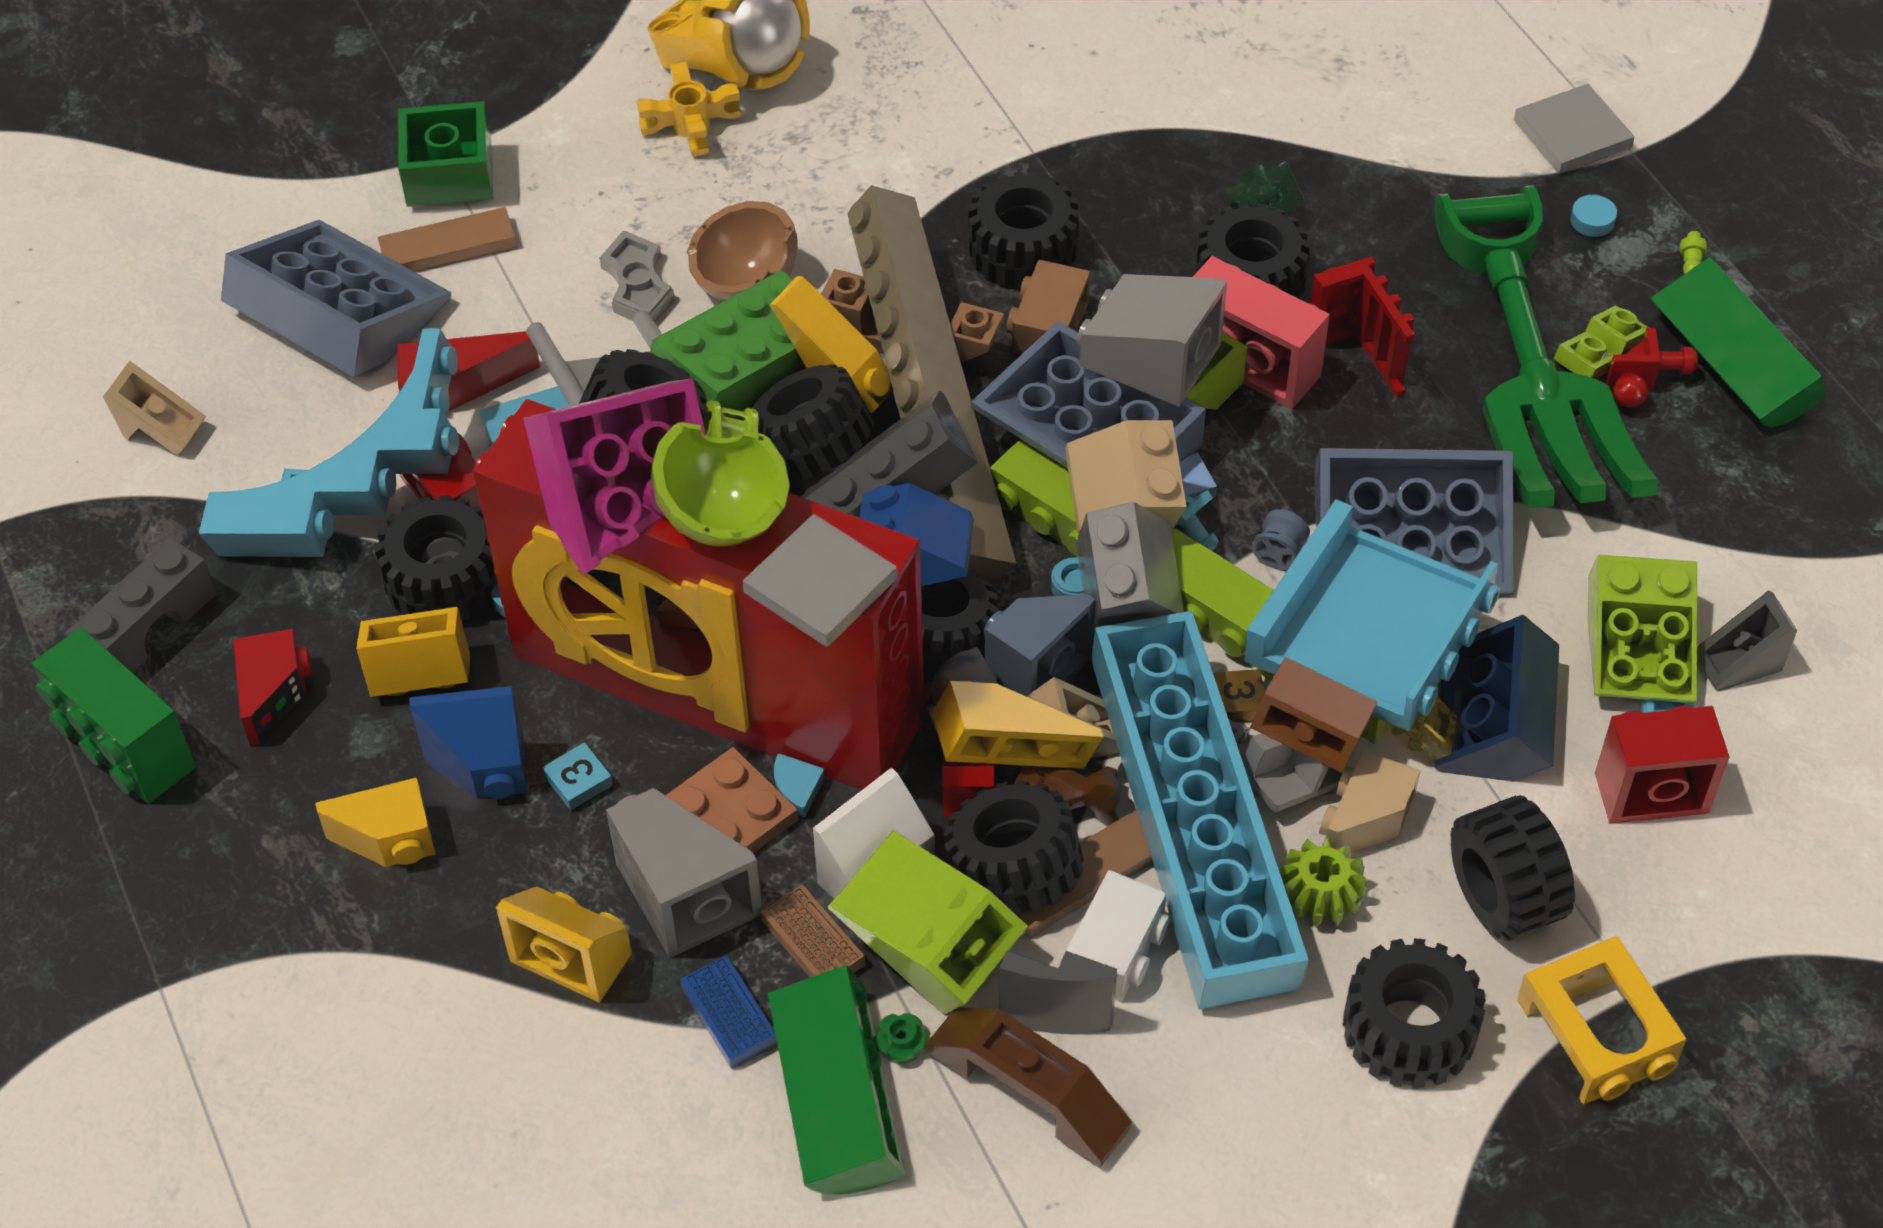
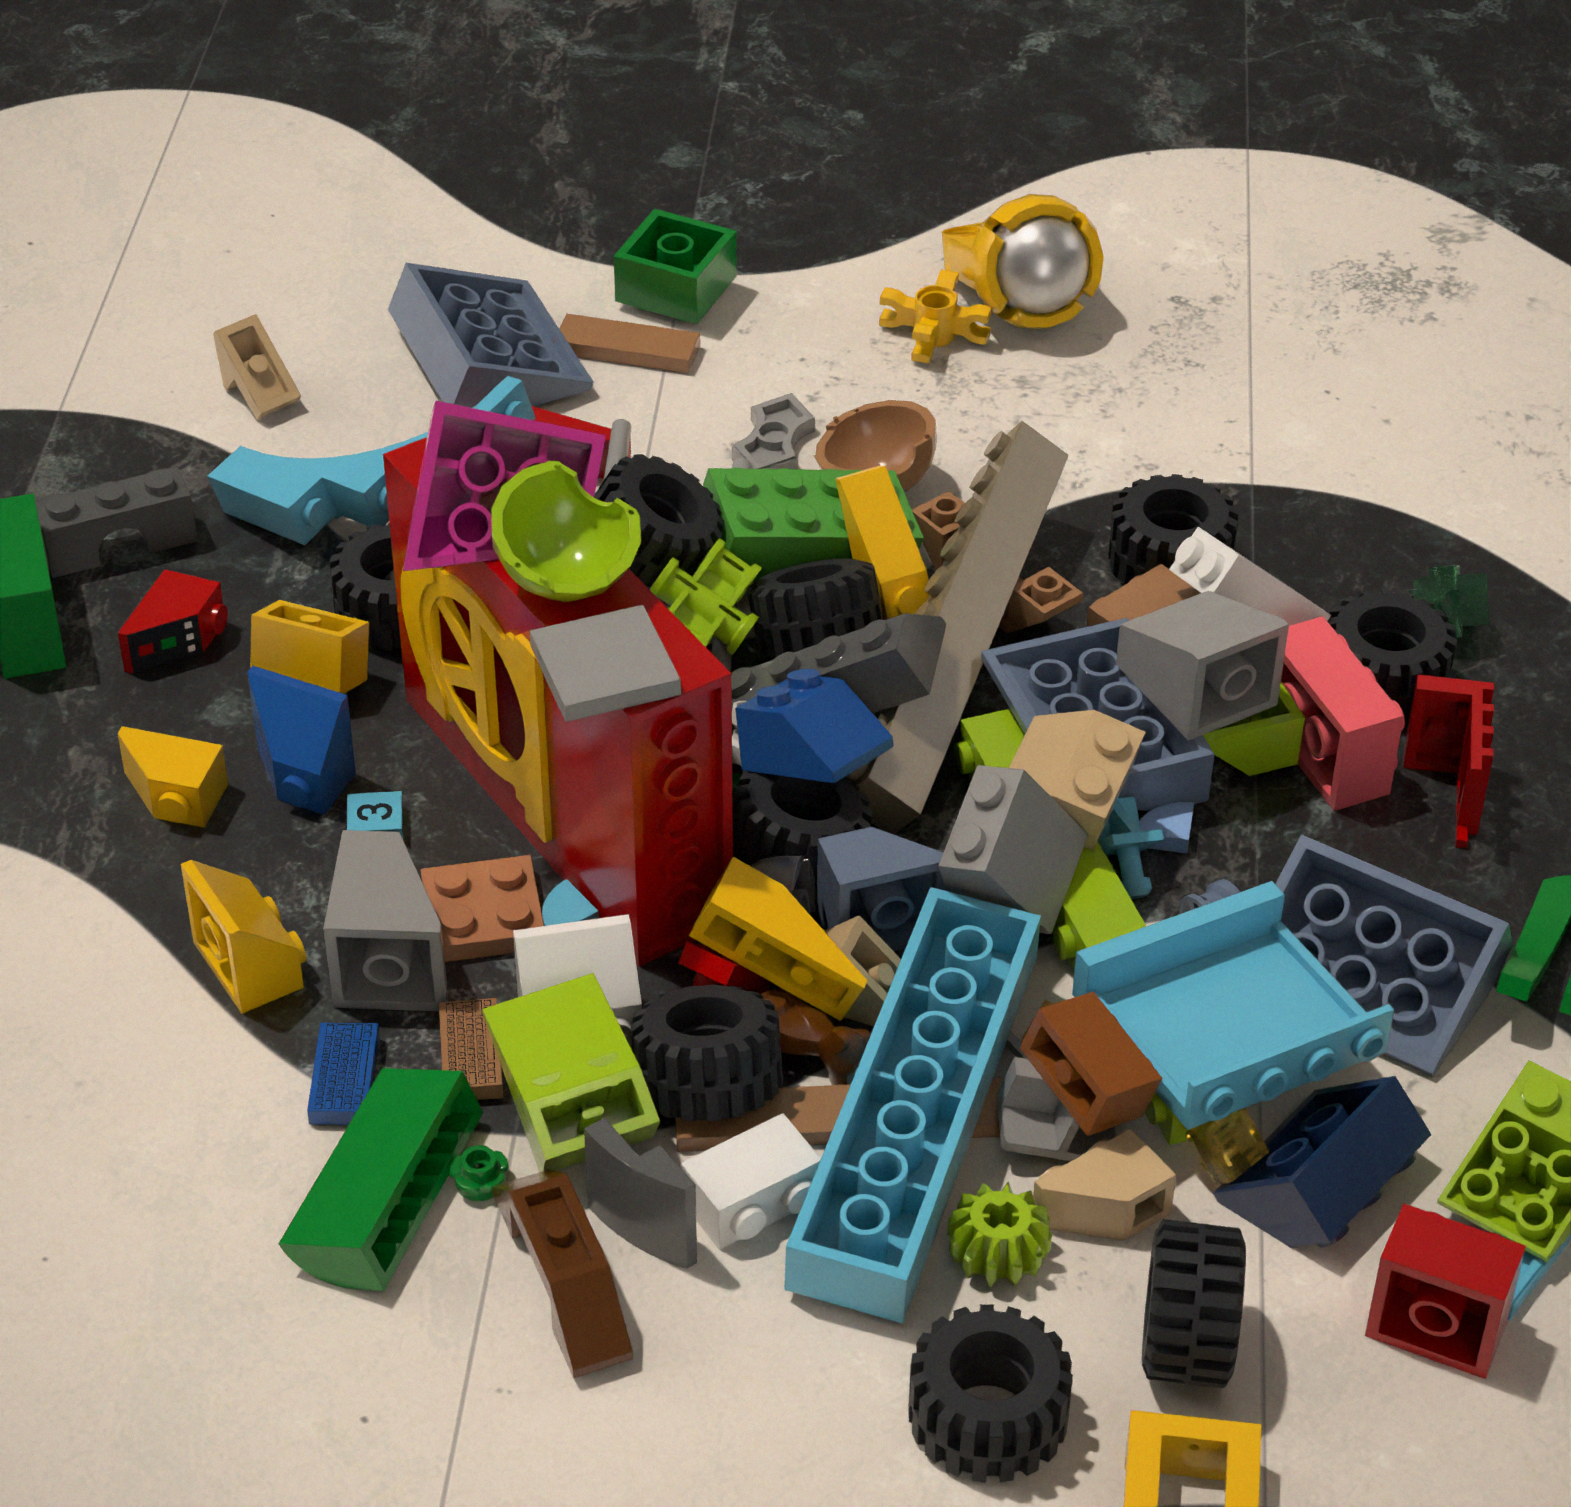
camera: 30 degrees right, 10 degrees down
(1122, 252) = (1218, 568): none -> white brick

